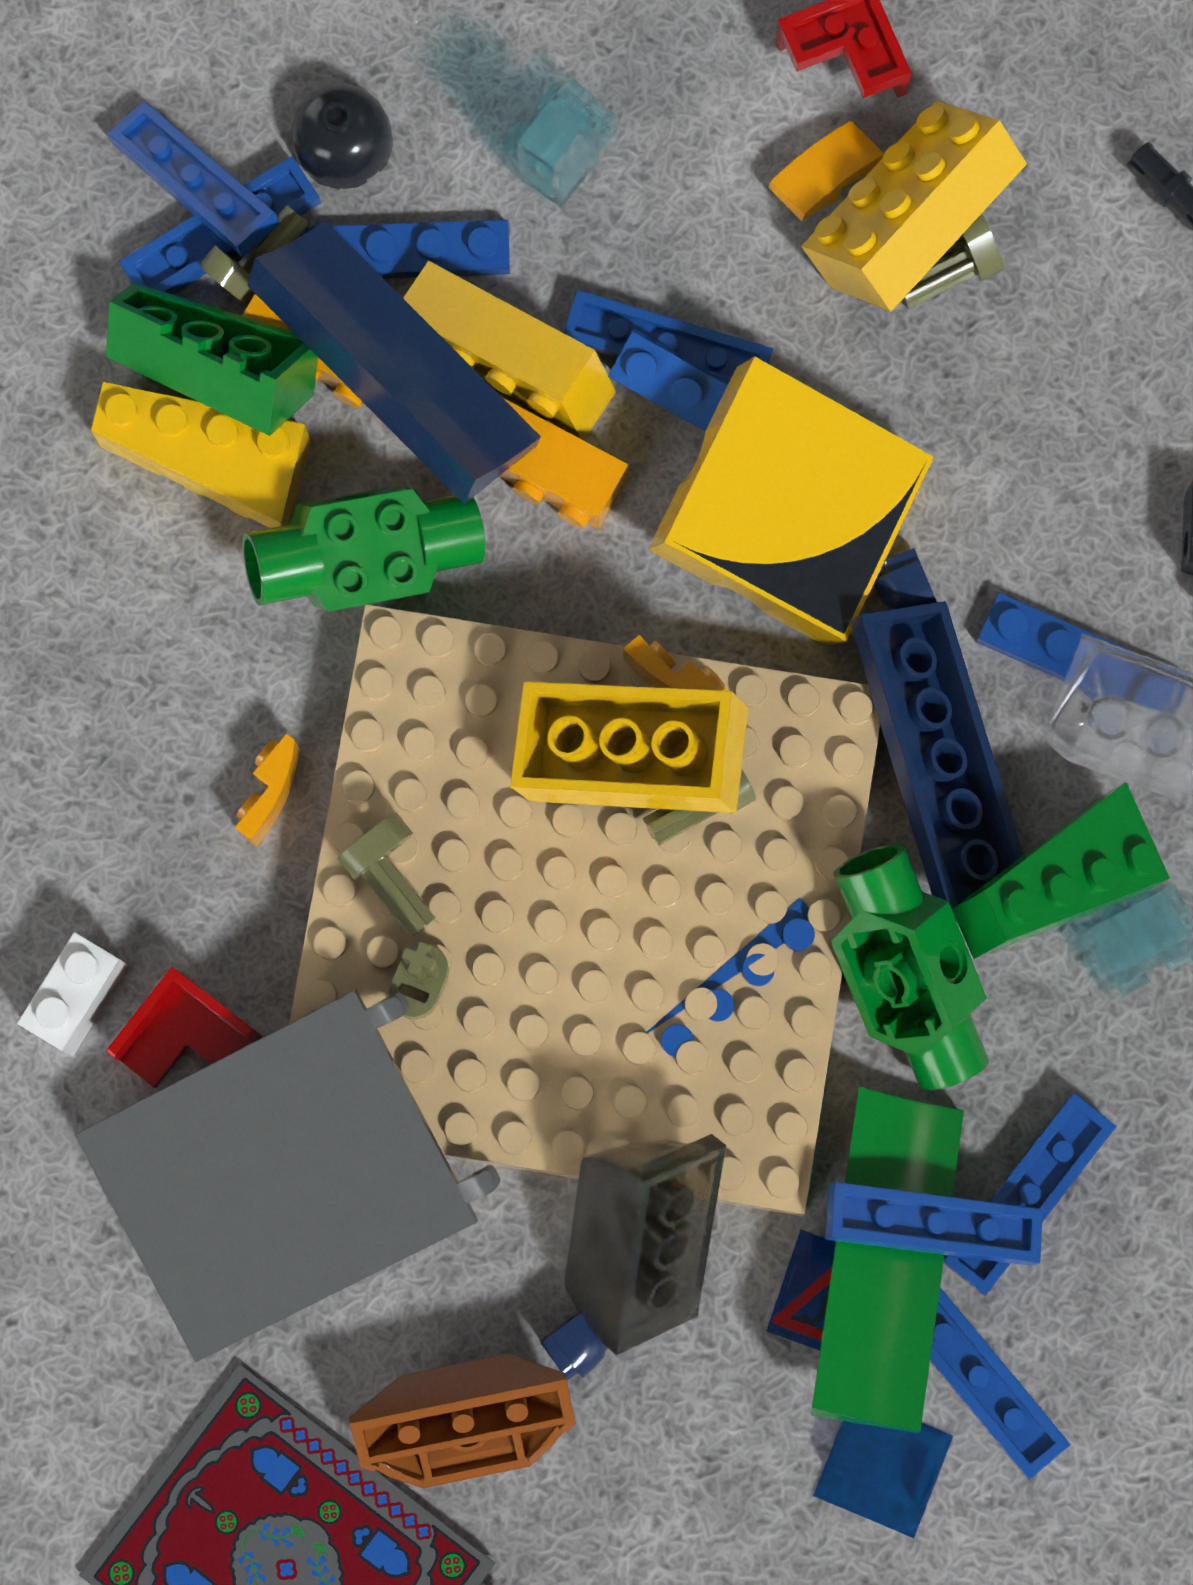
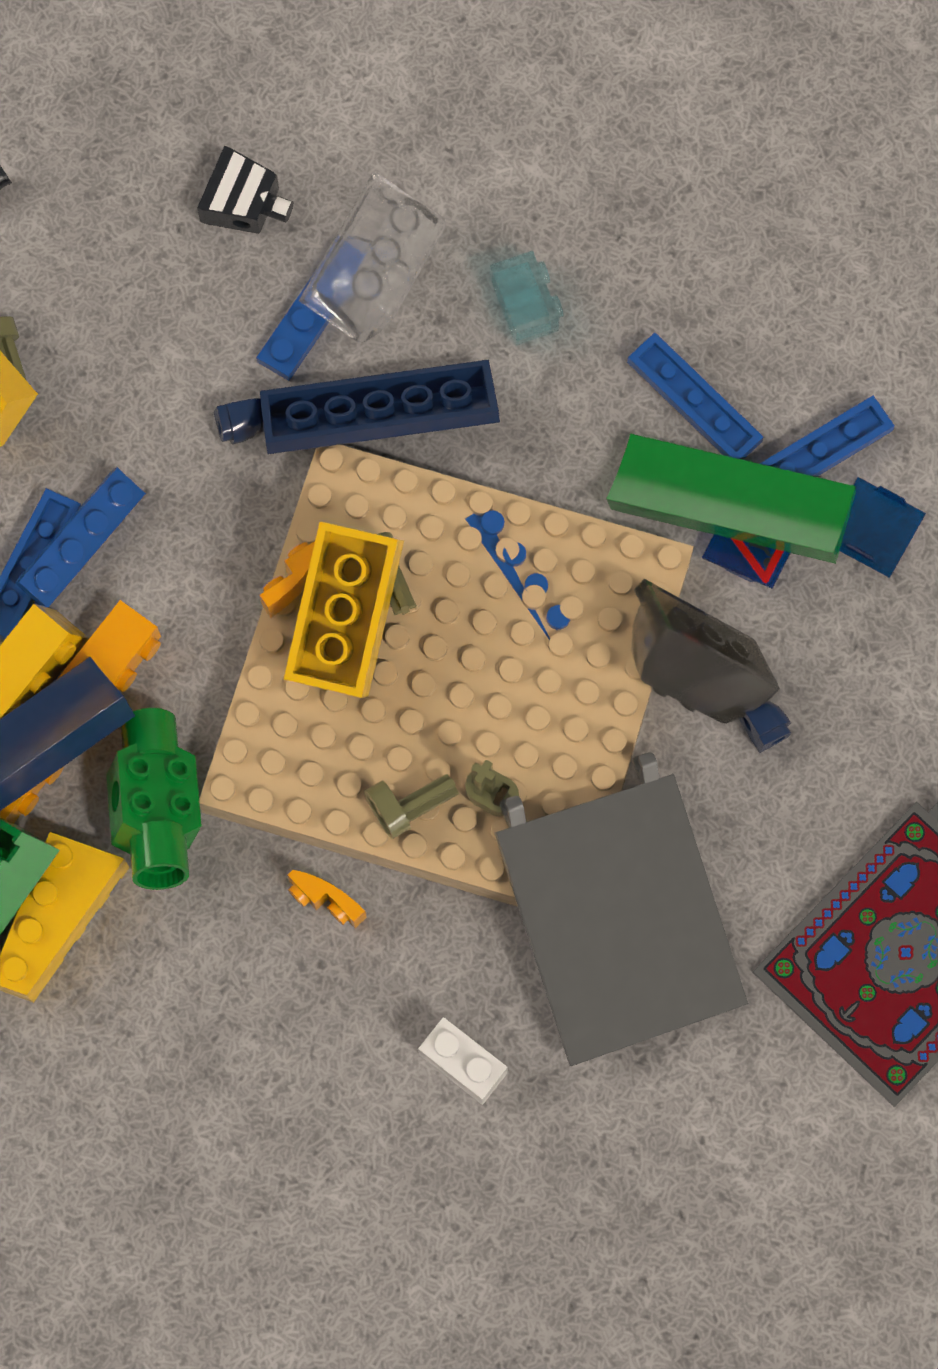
camera: 85 degrees left, 5 degrees down
(171, 1021) = (490, 980): red panel -> none
(463, 1420) = (812, 805): dark orange wedge -> none
(791, 502) = (169, 486): yellow tile -> none
(909, 968) = (527, 448): green brick -> none
(934, 1224) = (711, 458): blue plate -> none
(1076, 871) = (473, 330): green wedge -> none

